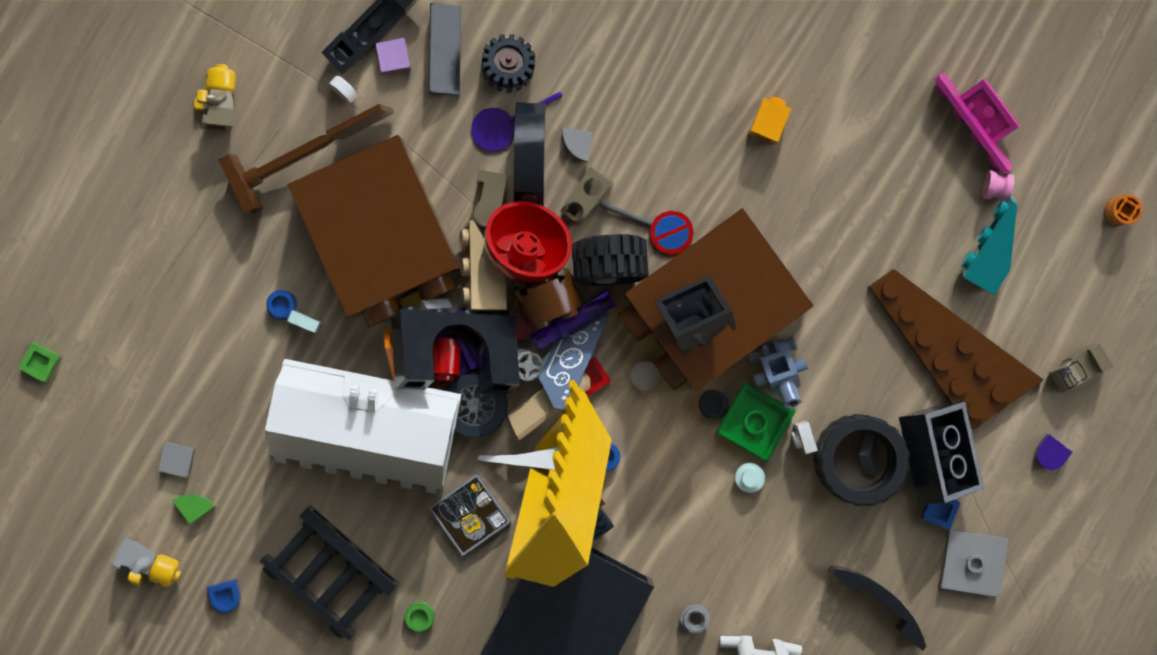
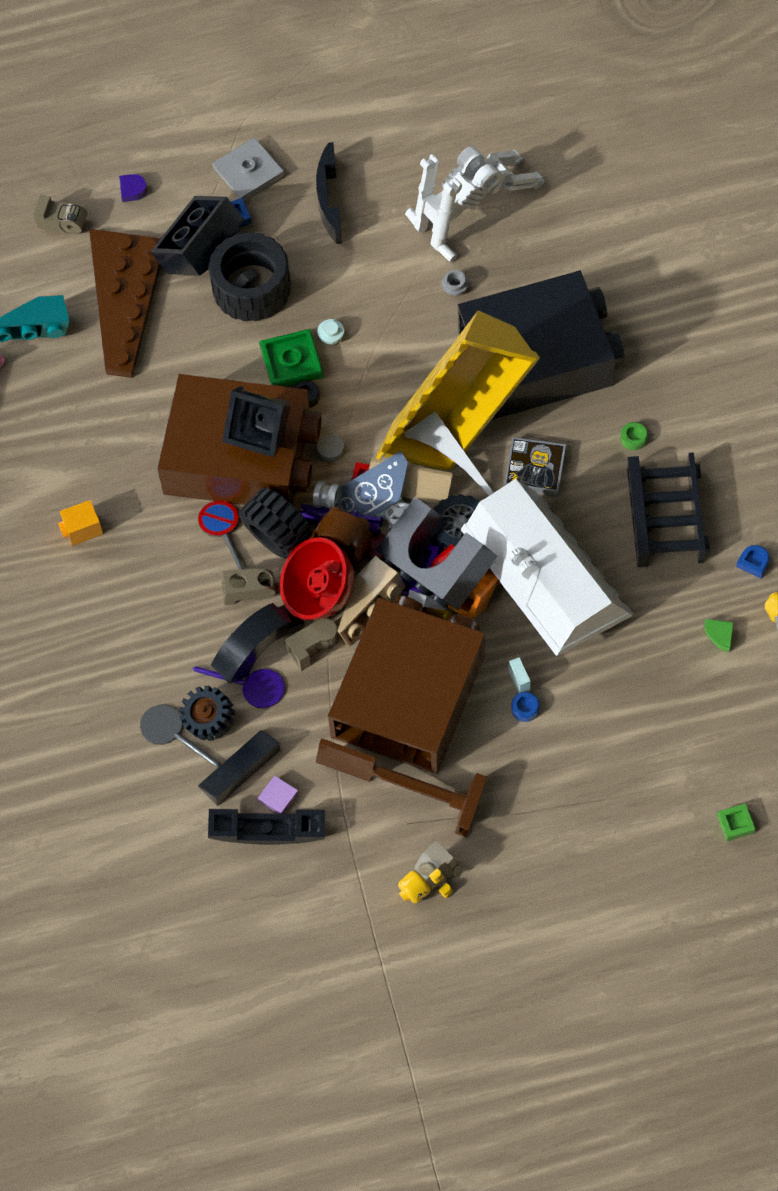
camera: 125 degrees left, 25 degrees down
(176, 459) = (701, 673): light grey tile -> none
(343, 89) = (335, 802): white tile -> none
(537, 25) = (163, 725): none -> dark grey piece
(578, 142) = (216, 626): light grey tile -> none
(596, 324) = (327, 495): none -> light grey wheel
(780, 370) = (244, 365): sand blue piece -> none
(803, 437) = (270, 322): white plate -> none

